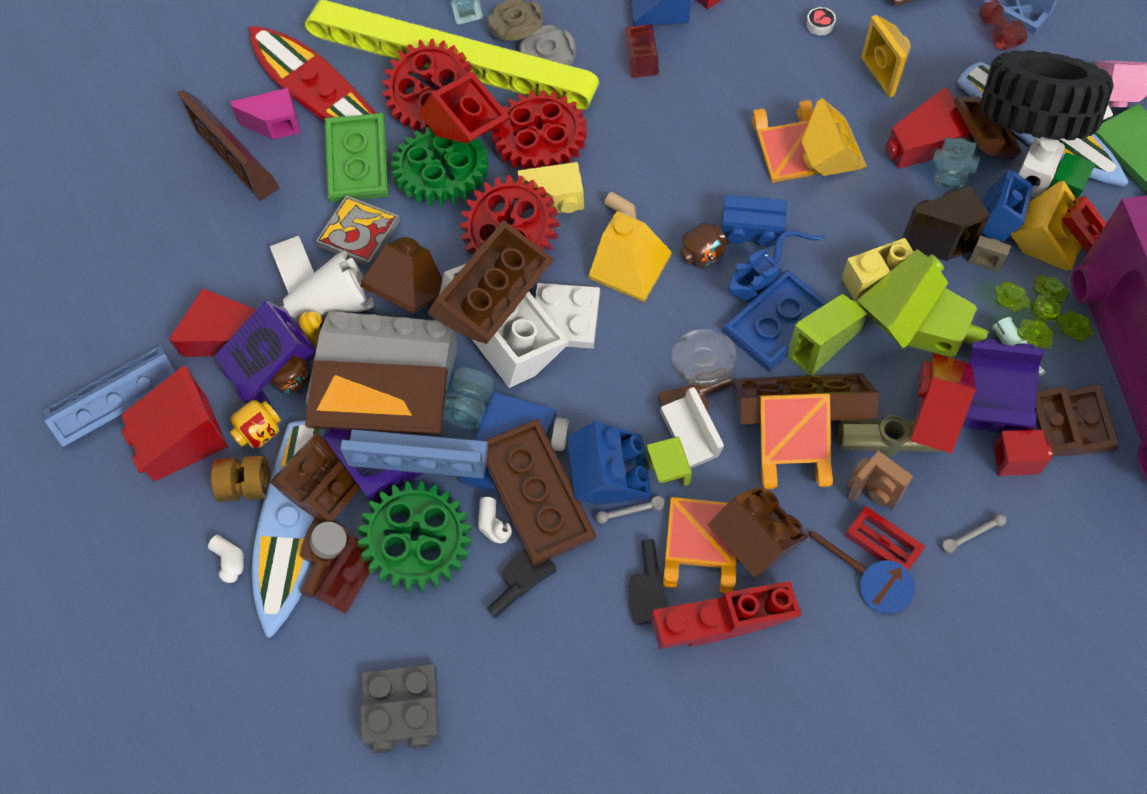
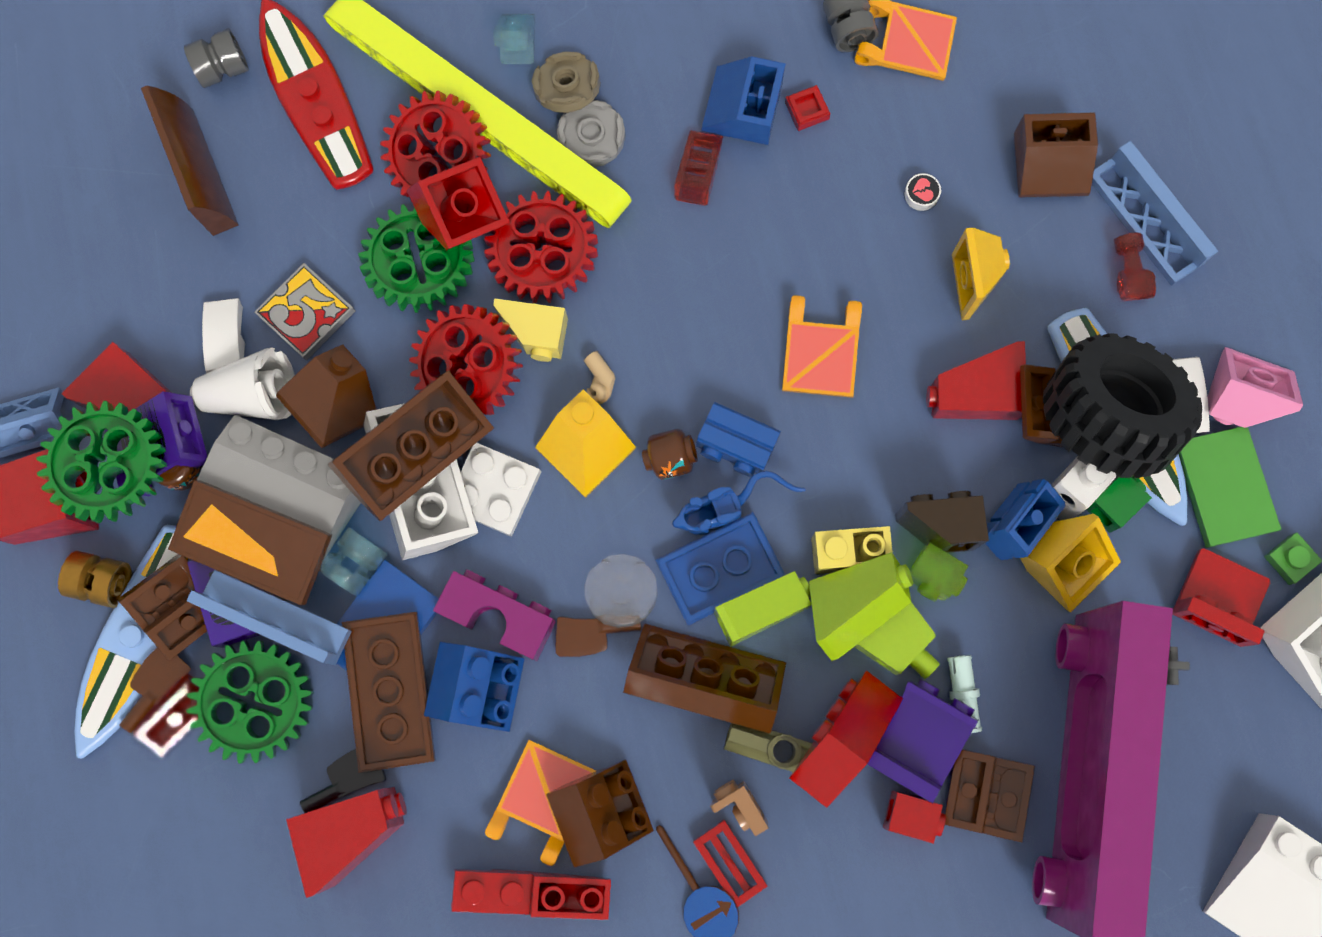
camera: 20 degrees right, 15 degrees up
(197, 371) = (67, 462): none -> green gear
(226, 72) = (216, 58): none -> dark grey wheel
(231, 558) = (64, 662): white arm -> none
(254, 424) = (129, 528): yellow head -> none
(268, 114) = (253, 128): dark pink slope -> none
(310, 325) = (211, 423): yellow arm -> none
(327, 540) = (161, 678): light grey tile -> none
(356, 157) = (329, 216): bright green tile -> none
(400, 708) = (182, 879): dark grey plate -> none
(488, 523) = (333, 710): white arm -> none
(542, 610) = (342, 835): none -> red slope
(560, 434) = (436, 633): light grey tile -> none
(581, 396) = (468, 598): none -> magenta arch
(646, 588) = (467, 833): black piece -> none
(656, 504) = (512, 741): light grey hinge -> none
(668, 461) = (535, 706): lime panel -> none
(694, 427) = (573, 674): white panel -> none
(795, 431) = (675, 721): coral flag -> none
(830, 142) = (863, 368): yellow slope -> none
(949, 545) = (796, 890): light grey hinge -> none
(955, 163) = (991, 453): clear light blue brick -> none
(959, 266) = (938, 573): none -> clear neon green brick
(989, 253) = (985, 566): dark tan plate -> none
(1045, 308) = (1013, 656): clear neon green plant -> none
(1079, 227) = (1110, 549): red tile -> none

